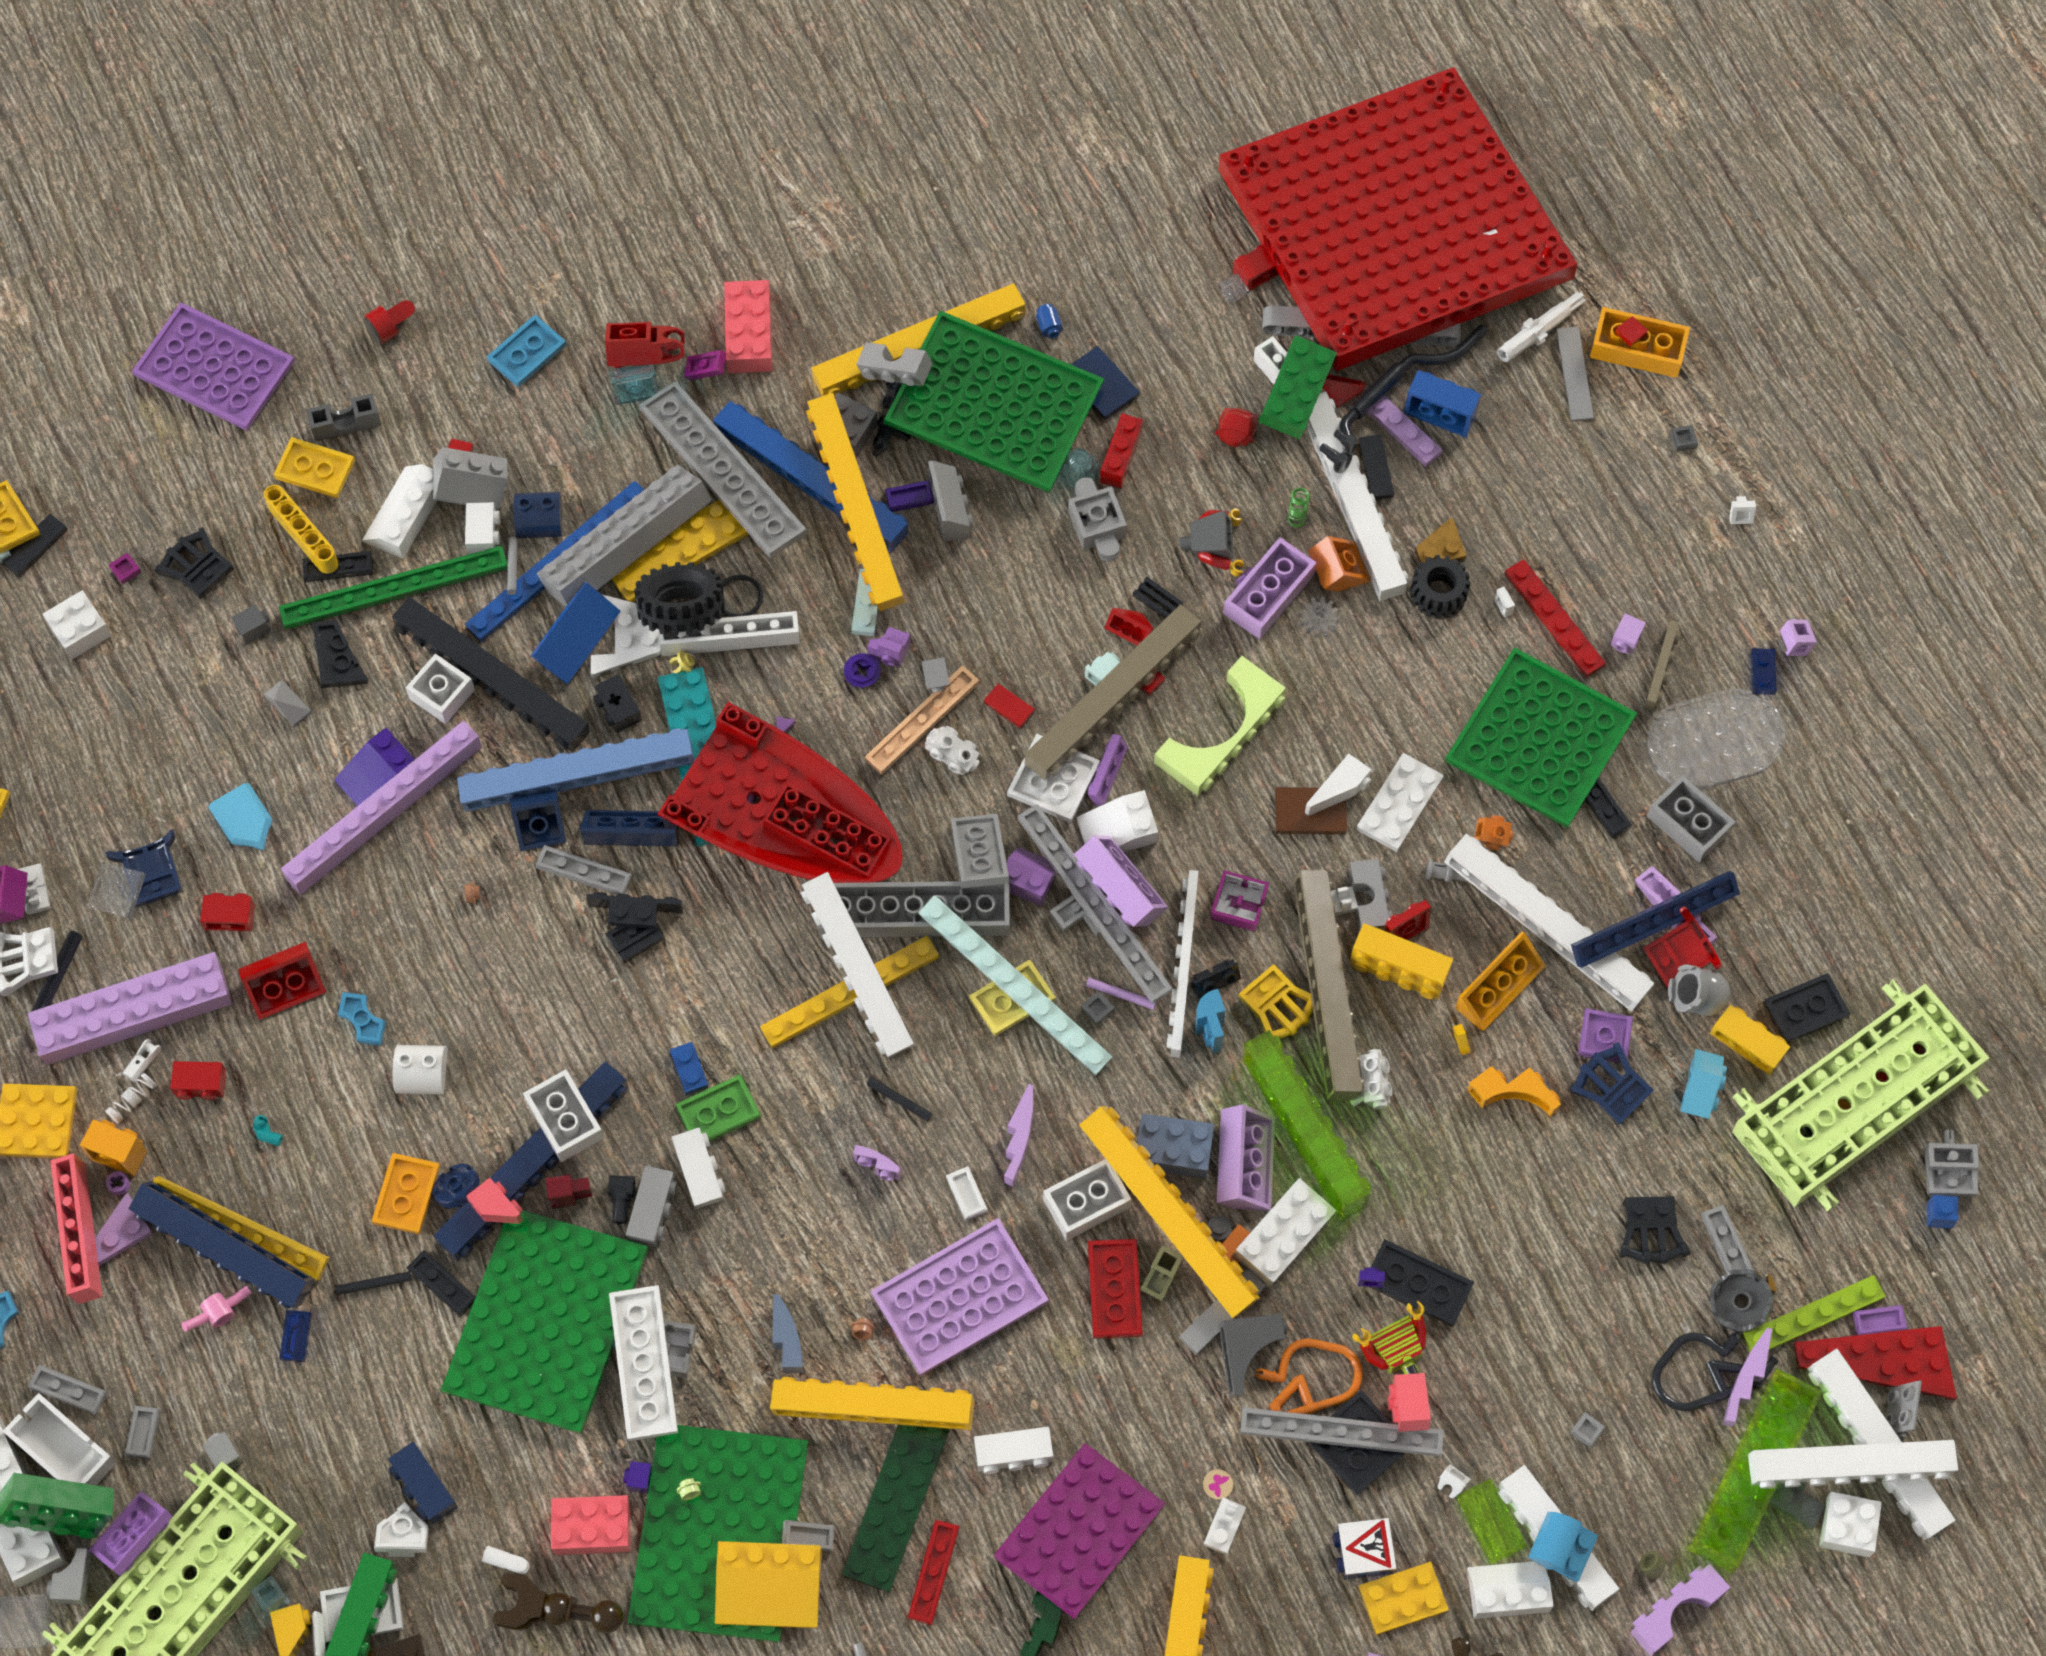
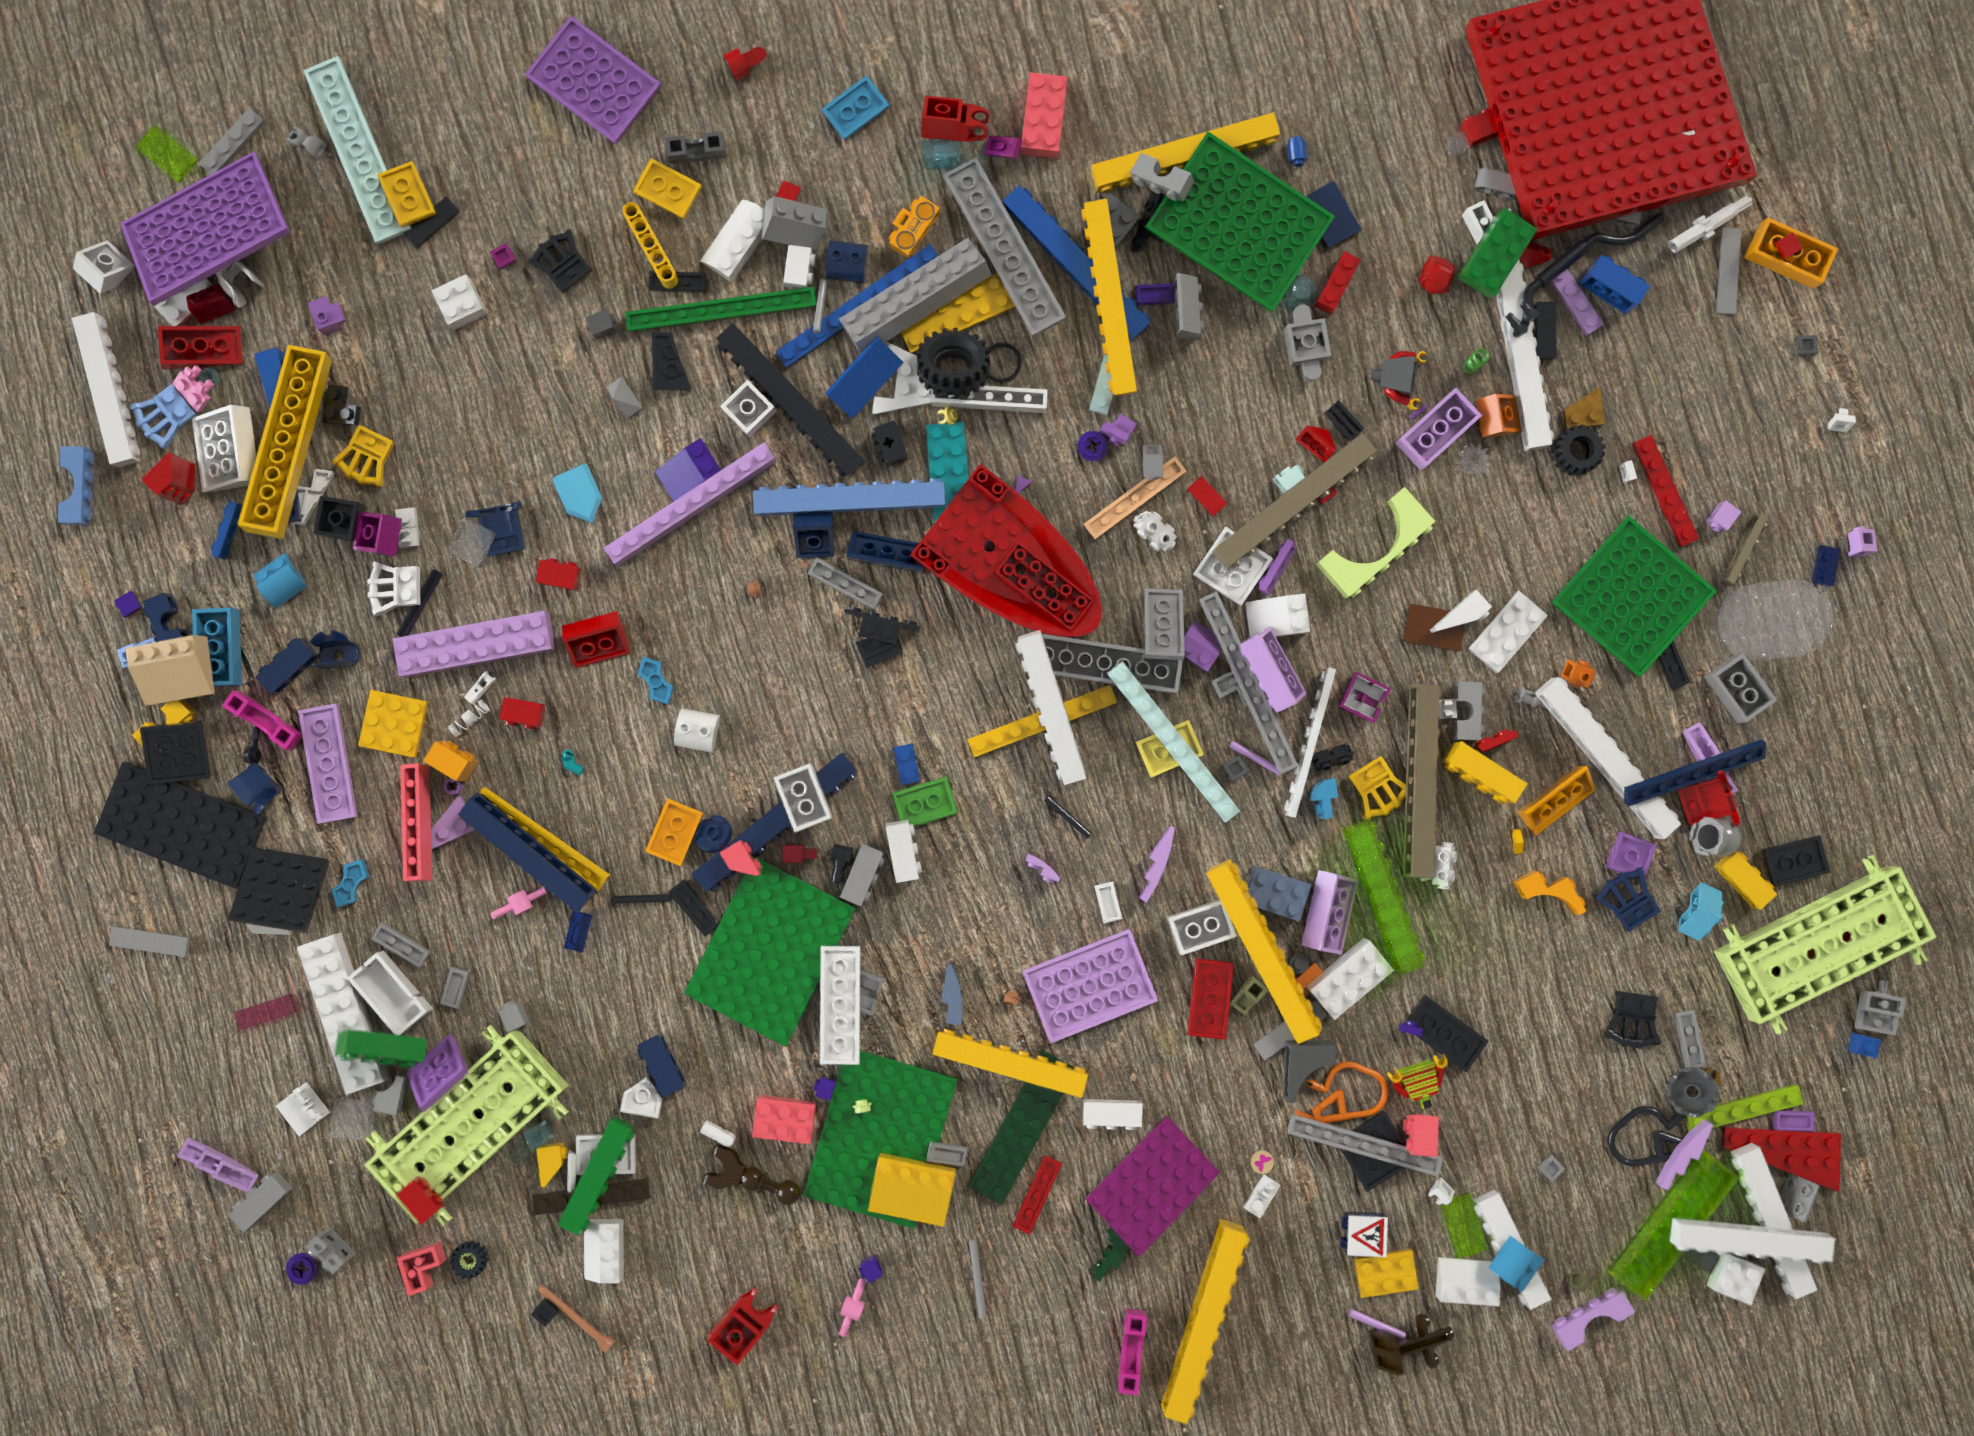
camera: 10 degrees right, 20 degrees up
(615, 465) = (919, 222): none -> light orange piece

